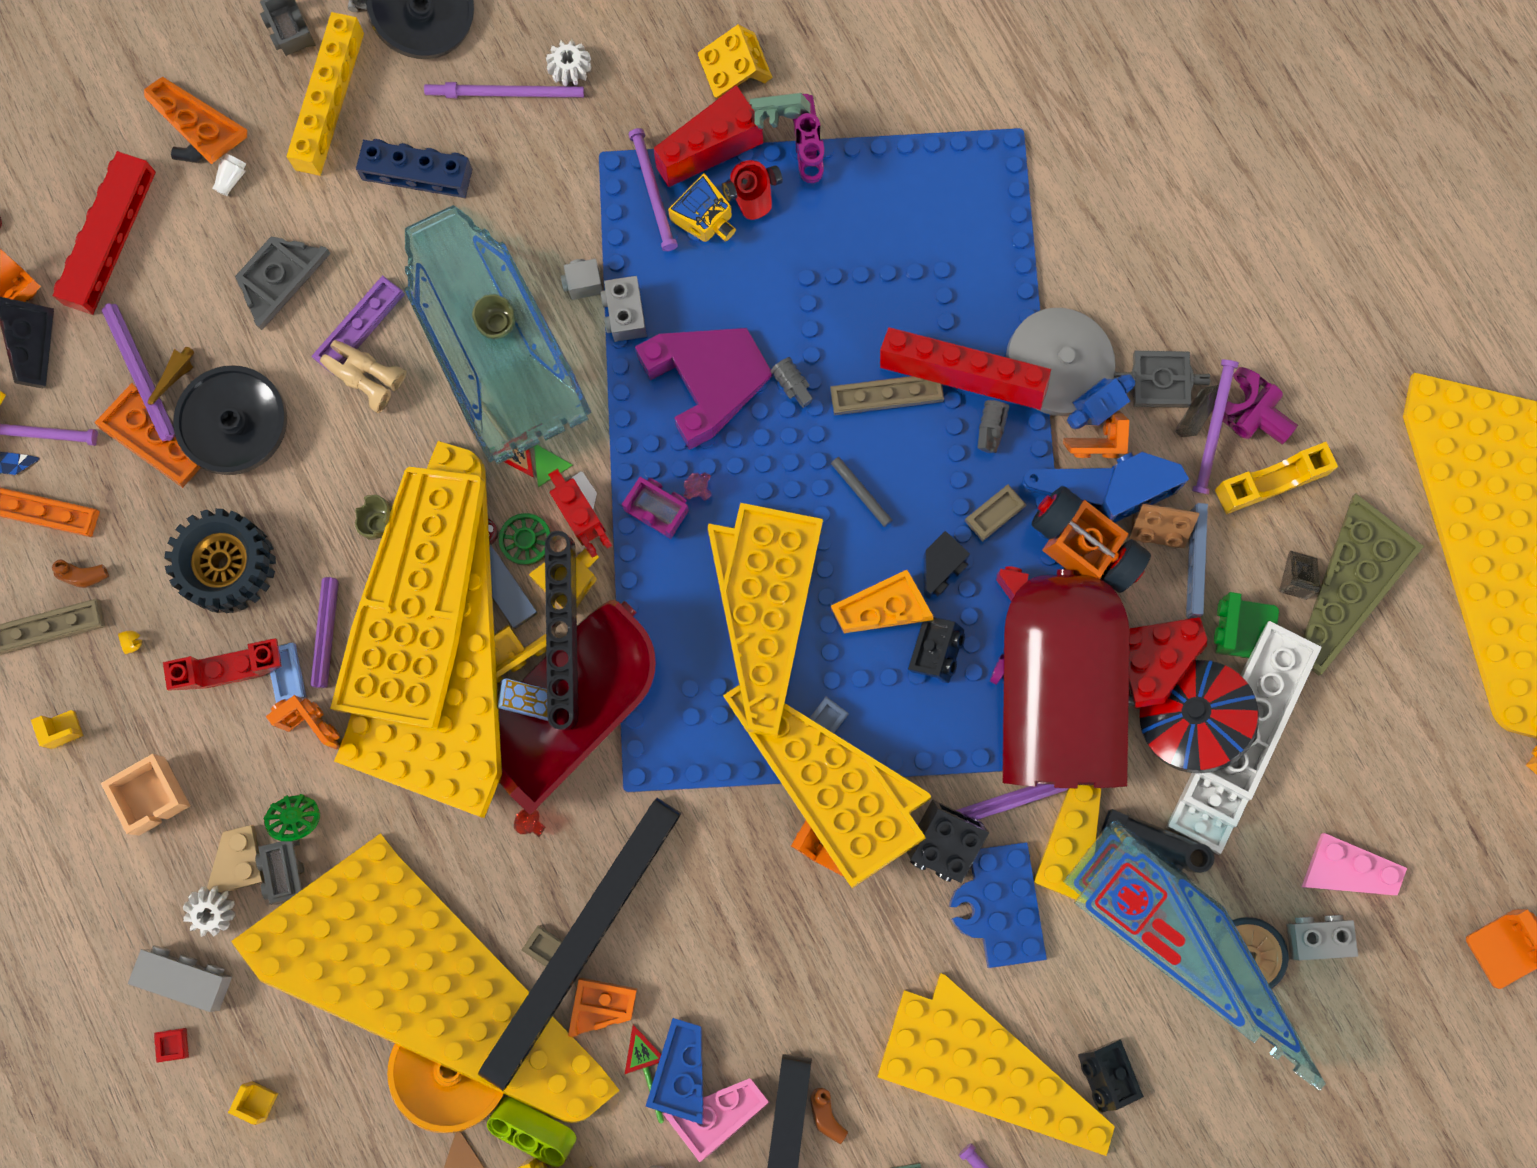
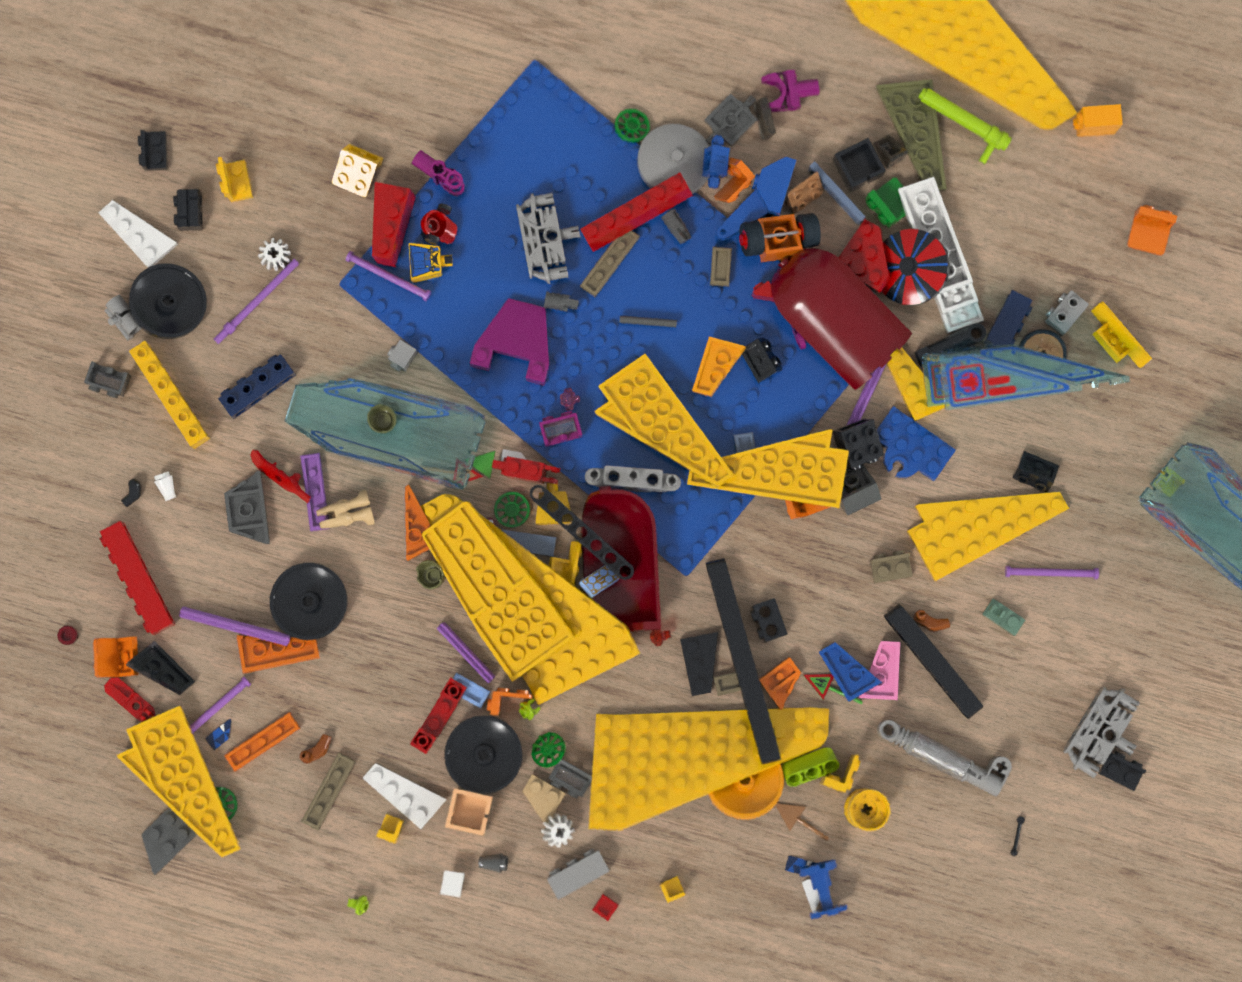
camera: 55 degrees left, 5 degrees up
(50, 851) = (452, 883): none -> white panel
(110, 713) = (409, 798): none -> white wing
(115, 875) = (494, 862): none -> dark grey cone
(128, 641) = (378, 754): yellow hinge -> none
(177, 366) = (251, 604): pearl gold piece -> none
(196, 121) = (126, 474): orange wing -> none
(199, 539) = (368, 652): black wheel -> none
(223, 752) = (483, 754): none -> black dish
(316, 753) = (526, 710): none -> lime plate
(341, 289) = (278, 476): none -> red piece
(416, 452) = (415, 525): none -> orange wing
(541, 894) = (699, 661): none -> black wing
(624, 308) = (440, 349): light grey brick -> none
(663, 932) = (773, 619): none -> black brick
(671, 631) = (633, 479): none -> light grey piece
(787, 105) = (418, 167): sand green plate -> none
(830, 292) = (531, 238): none -> light grey piece
(844, 1011) = (891, 567): none -> dark tan bracket
(895, 891) = (858, 490): none -> dark grey slope
(941, 561) = (720, 317): black slope -> none
(1053, 284) = (632, 125): none -> green wheel
(1215, 426) = (780, 119): medium lavender bar -> none
(1251, 881) = (1009, 319): none -> dark blue brick
(1252, 555) = (859, 165): none -> black piece
(1284, 476) = (833, 115): yellow arch -> none
(1349, 868) = (1047, 266): bright pink wing -> none
(1351, 1026) = (1116, 338): none -> yellow bracket
(1429, 665) = (989, 133): none -> lime cylinder

